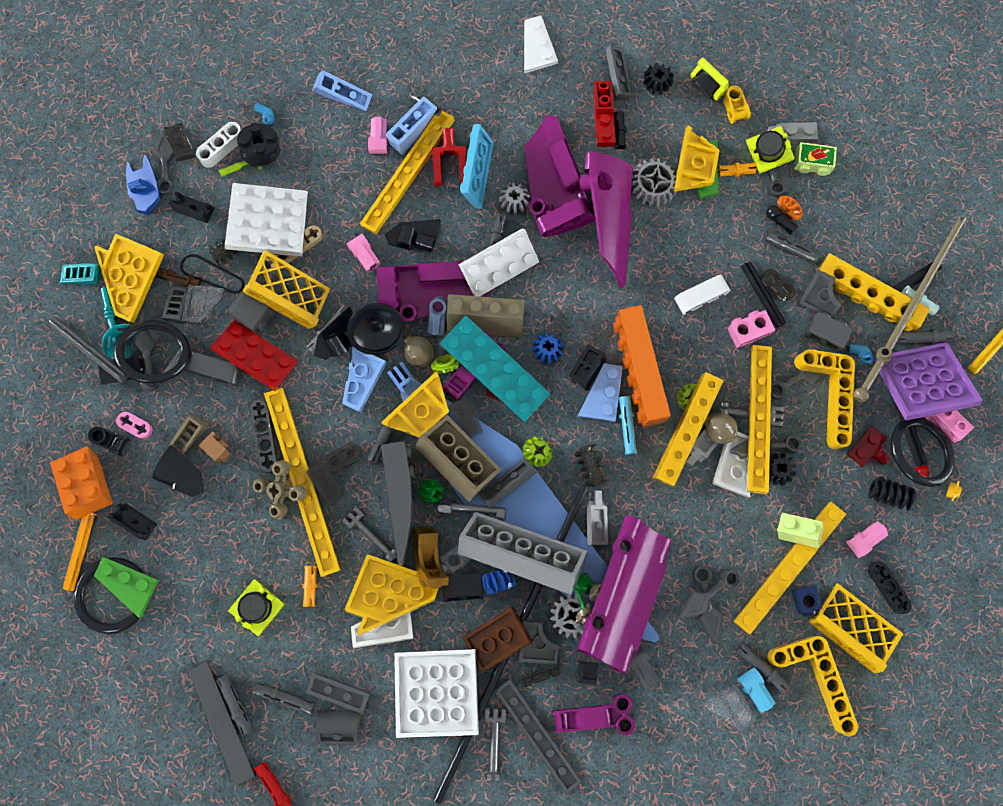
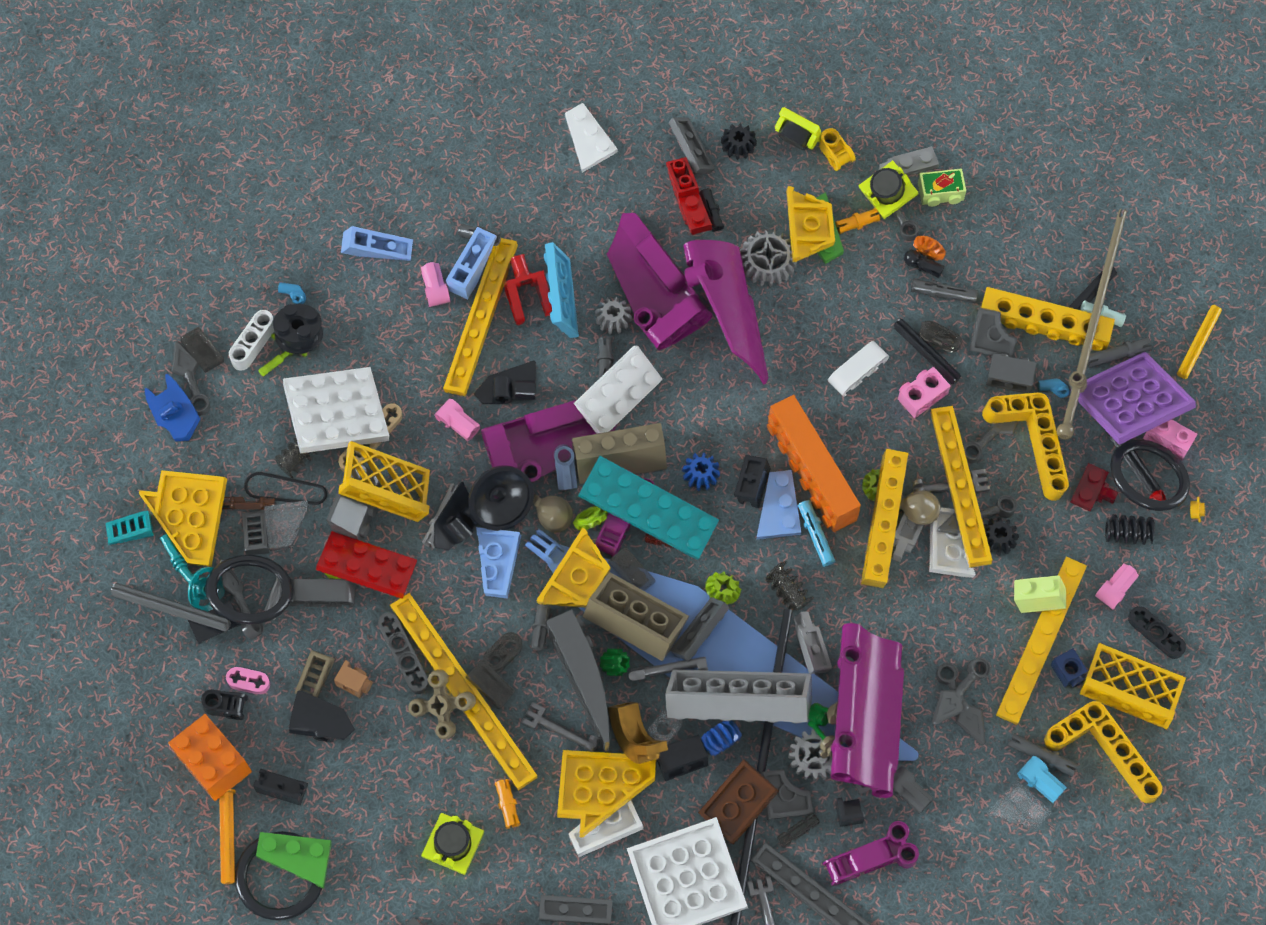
camera: 15 degrees left, 10 degrees down
(192, 207) = (240, 420): black hinge -> none

